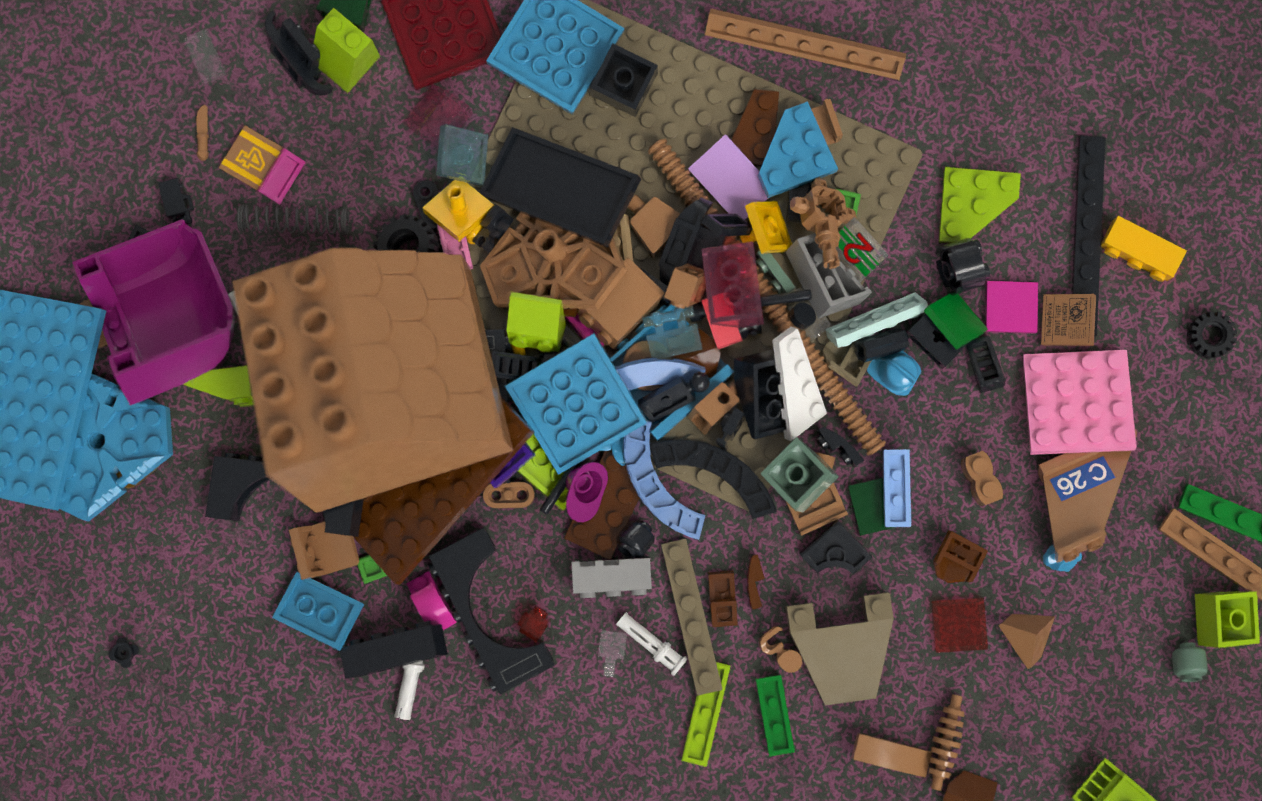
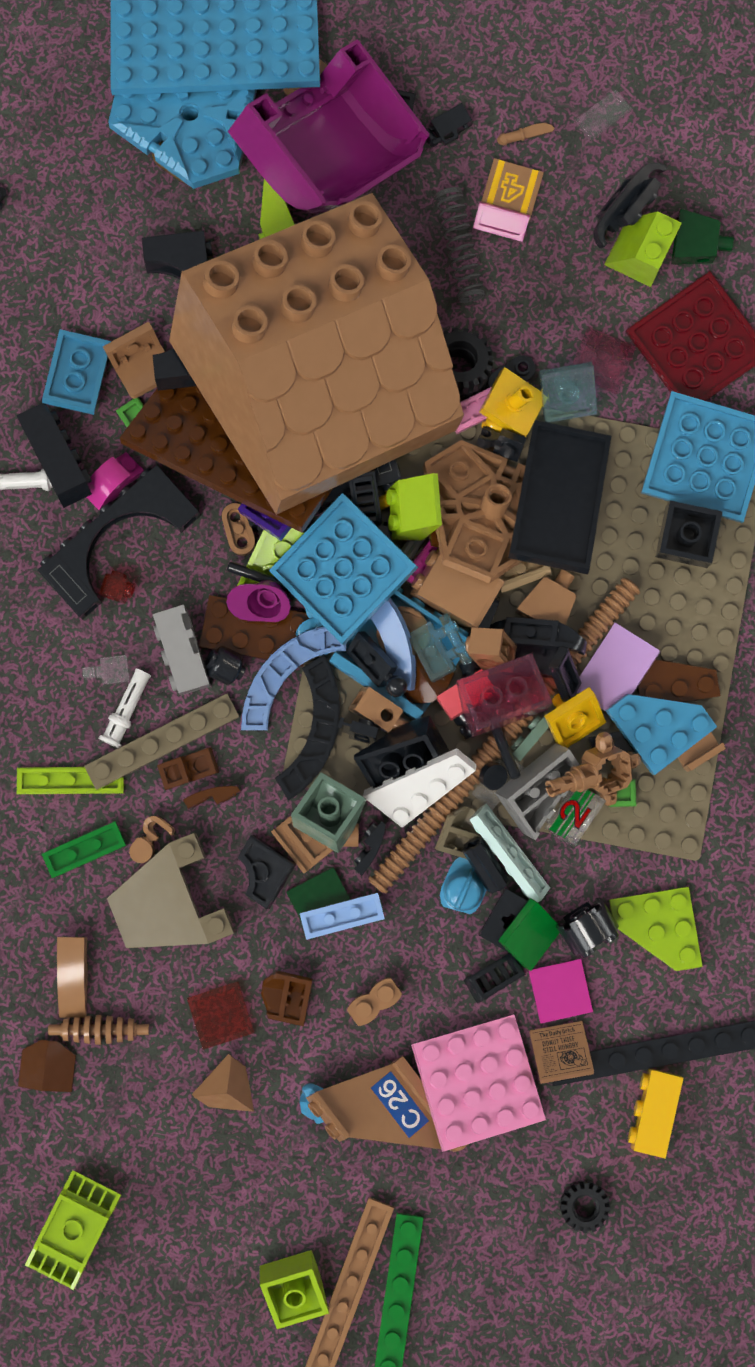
camera: 70 degrees right, 0 degrees up
(1189, 662) = (239, 1260): sand green head -> none

